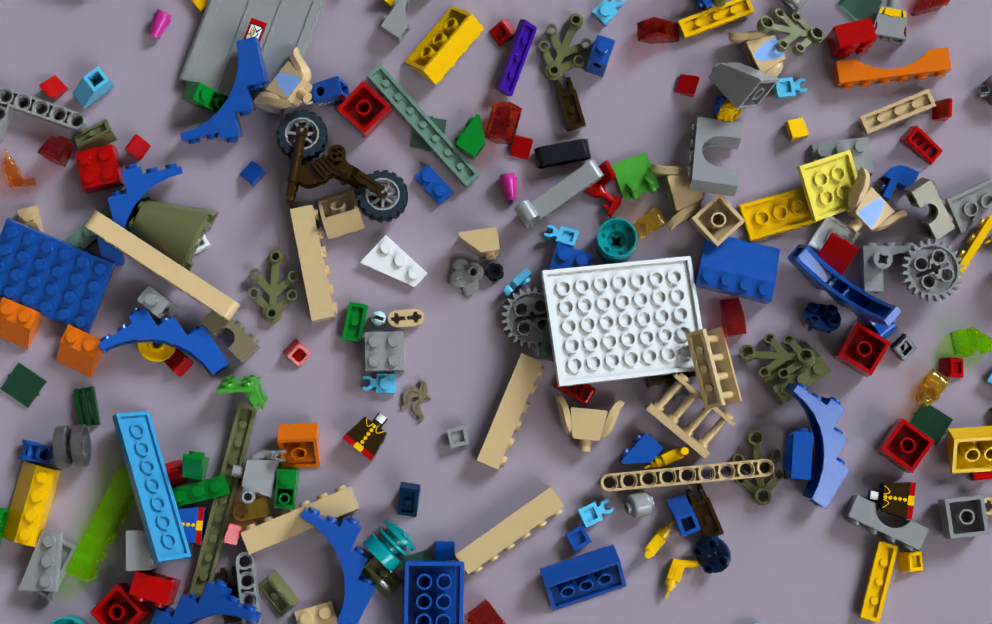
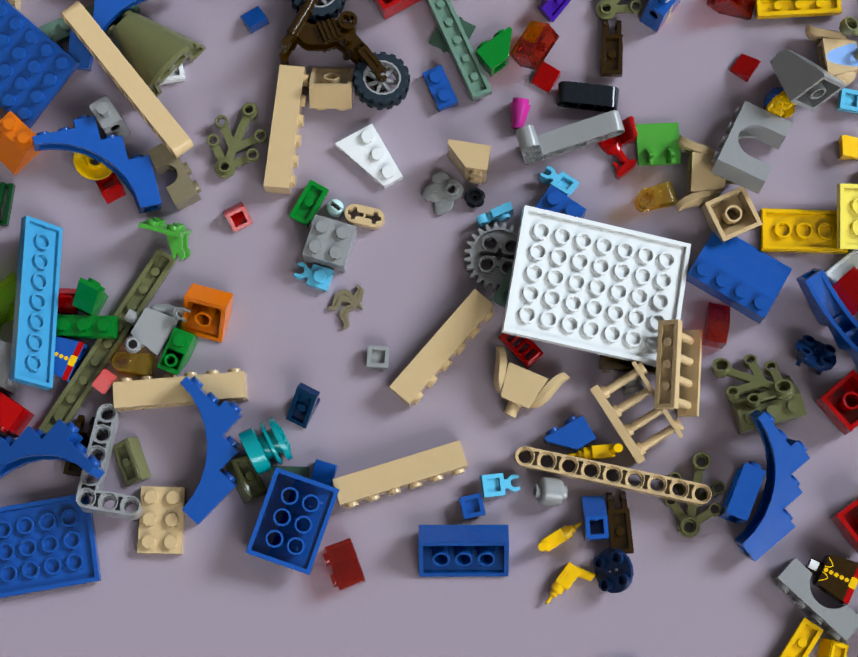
camera: 25 degrees right, 5 degrees down
(367, 435) = (282, 325): dark brown torso -> none
(613, 231) = (619, 193): teal wheel -> none

